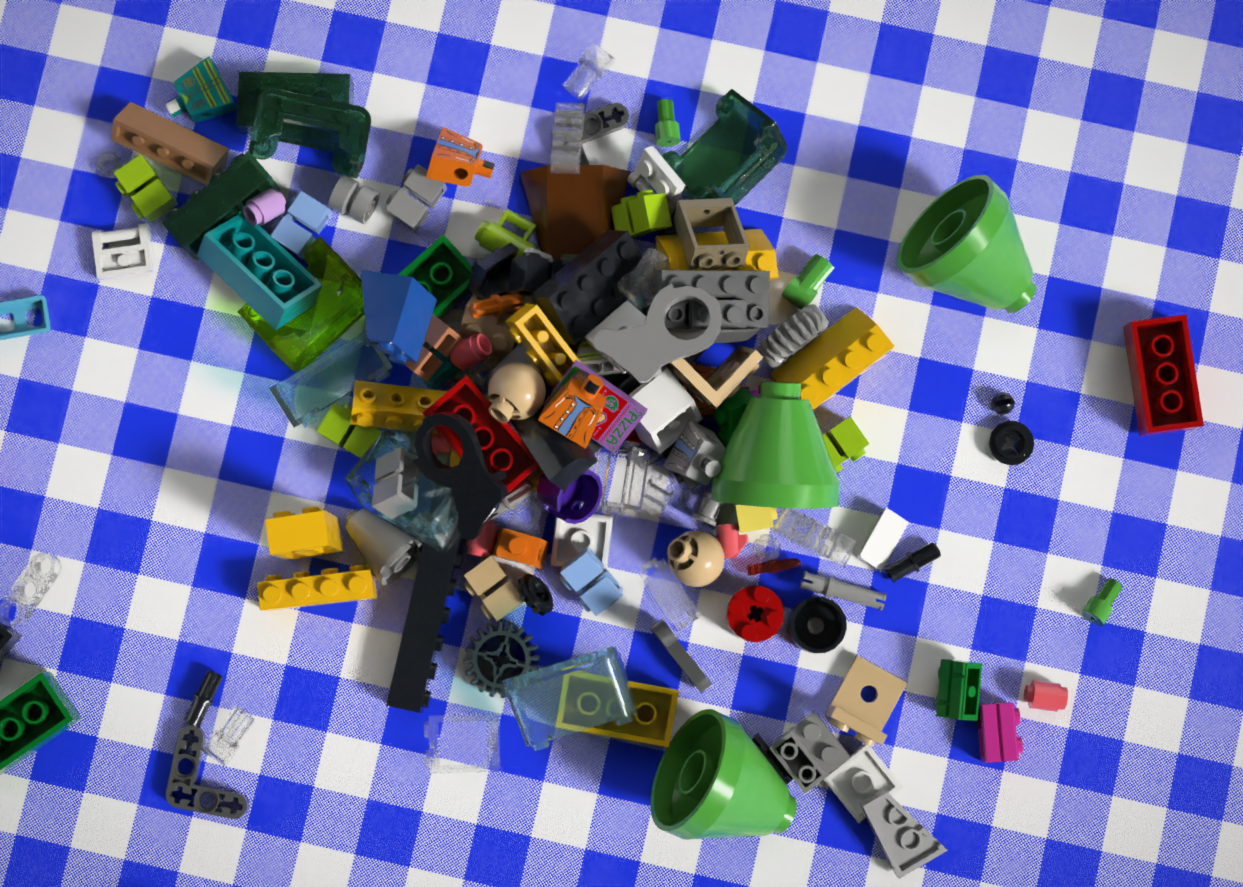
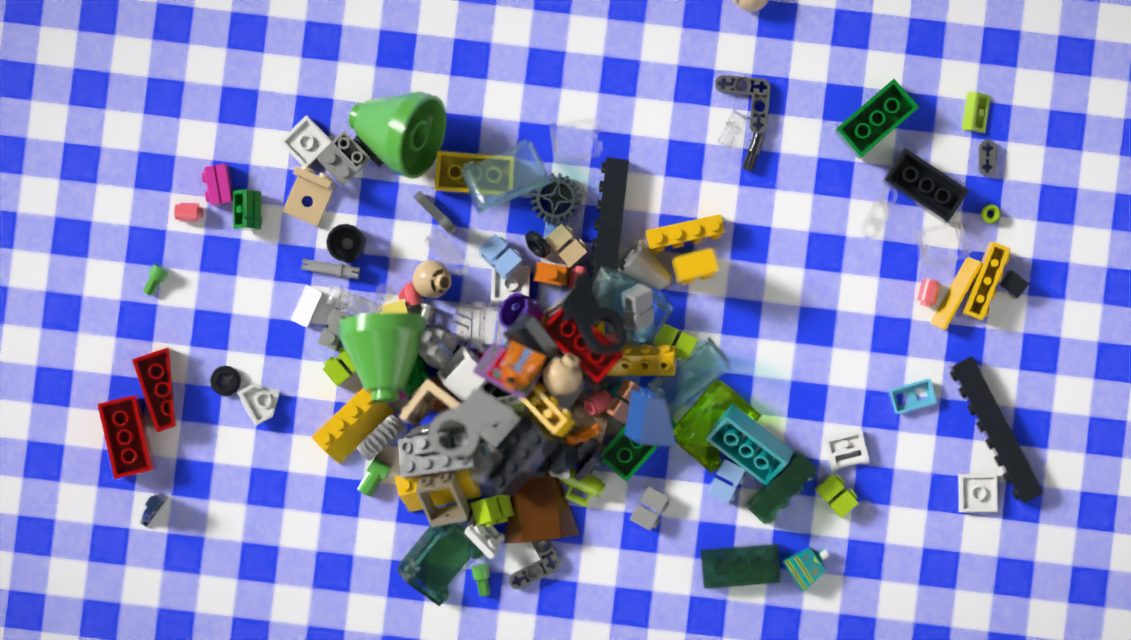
camera: 170 degrees right, 5 degrees up
(169, 143) = (823, 528): medium nougat brick -> none
(264, 207) = (751, 488): lavender brick -> none
(312, 124) = (705, 548): clear green windscreen -> none
(358, 201) = (691, 502): light grey wheel -> none
(457, 160) = (623, 536): orange torso -> none
(567, 138) = (548, 558): clear beam -> none
(592, 65) = (538, 613): clear piece -> none
(739, 608) = (378, 243): red brick -> none
(772, 566) = (379, 280): clear red piece -> none
(852, 492) = (330, 335): none -> light grey piece
(899, 834) = (278, 110): light grey wing -> none
(913, 562) = (284, 293): black axle -> none
(964, 406) = (259, 402): none -> white plate
(970, 248) = (266, 509): bright green cone -> none
(1003, 409) = (232, 403): black hinge -> none
(1113, 446) = (157, 386): none -> red wedge
(1132, 271) = (153, 505): none -> dark blue wing

